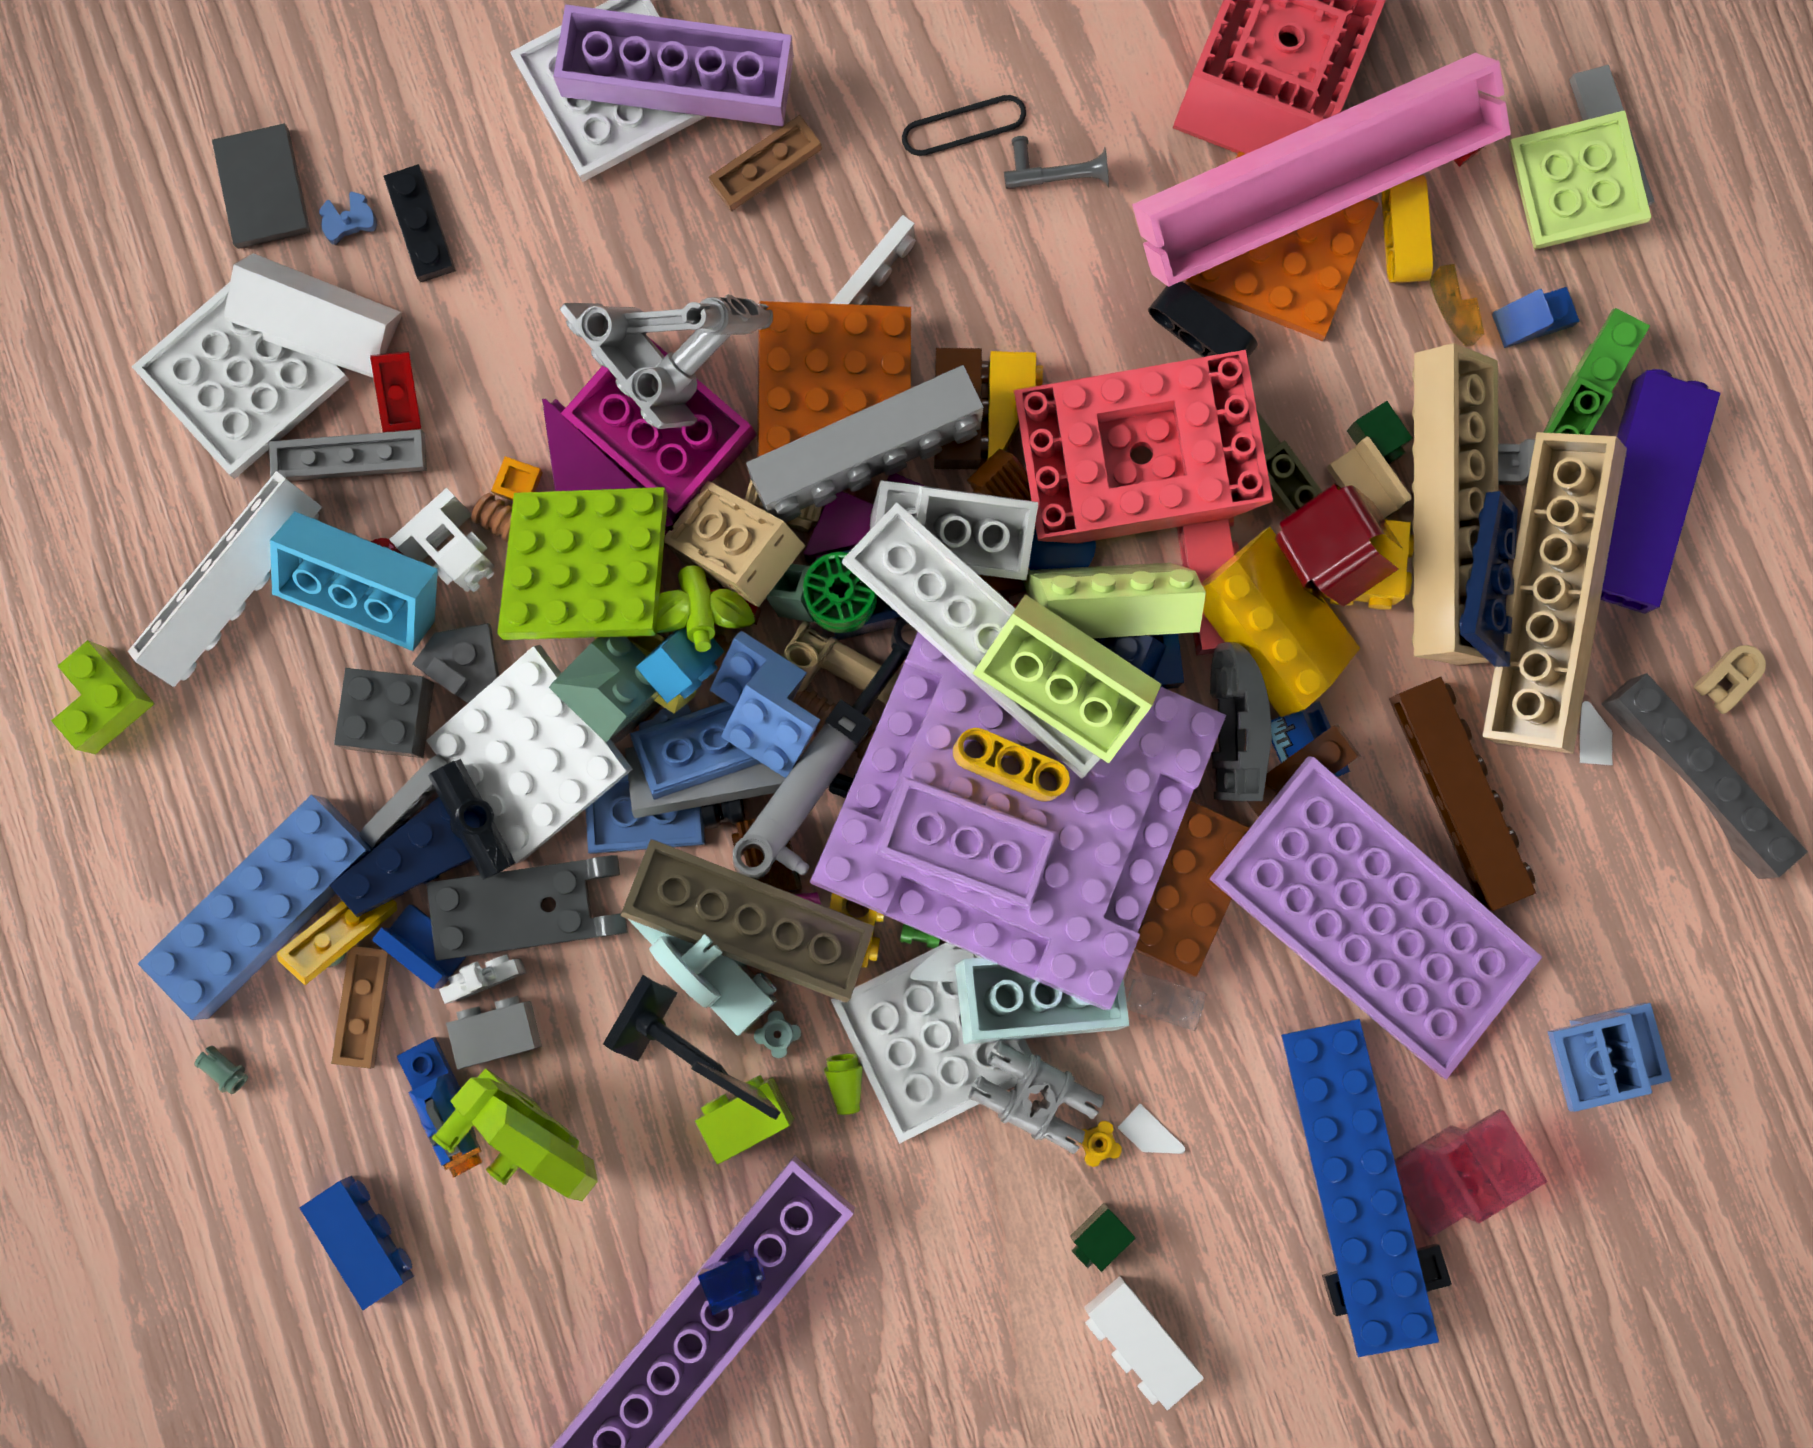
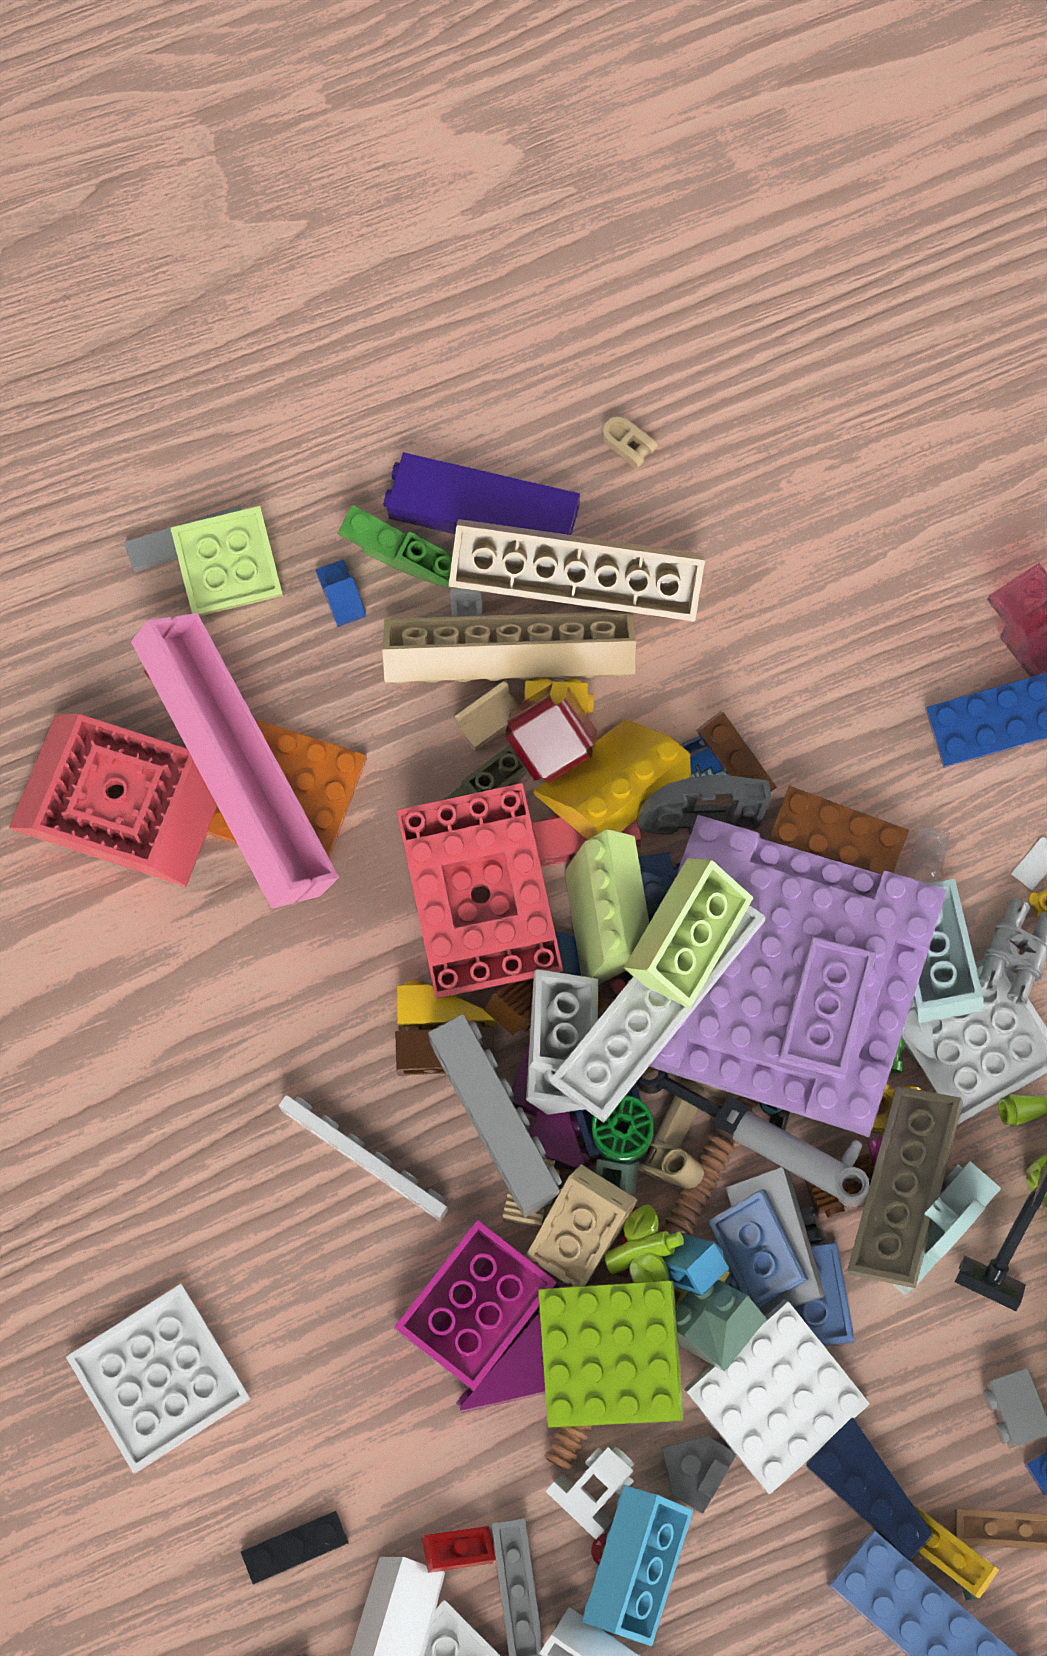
camera: 90 degrees left, 10 degrees down
(348, 222) = (300, 1626): medium blue piece -> none
(384, 713) = (750, 1531): dark grey brick -> none
(402, 804) = (826, 1506): light grey beam -> none
(412, 945) = (949, 1480): blue panel -> none
(460, 795) = (822, 1450): black piece -> none
(474, 979) = (974, 1423): white hinge -> none
(507, 911) = (912, 1407): dark grey hinge -> none
(515, 478) = (531, 1432): light orange plate -> none
(642, 372) = (421, 1327): light grey plate -> none
(674, 65) = (151, 1312): lavender brick -> none
(764, 716) = (720, 1189): medium blue bracket -> none
(765, 163) = (230, 1233): medium nougat plate -> none
(777, 1023) = (999, 1166): light aqua plate -> none
(827, 365) = (425, 1159): orange plate -> none
(958, 111) = (173, 1067): black piece -> none
(1029, 176) = (234, 1005): dark grey piece -> none
(1030, 764) = (761, 959): yellow beam -> none
(1199, 322) = (364, 852): black beam -> none
(1376, 917) = (846, 697): lavender plate -> none
(1384, 430) = (445, 706): dark green brick -> none
(1407, 231) = (278, 692): yellow beam -> none
(1460, 315) = (346, 648): clear yellow slope -> none
(1463, 795) = (739, 636): reddish brown brick -> none
(1491, 580) = (572, 616): dark blue wing -> none
(1594, 737) = (684, 539): white sticker -> none
(1609, 1057) = (936, 522): medium blue bracket -> none
(1745, 819) = (677, 487): flat silver arch -> none

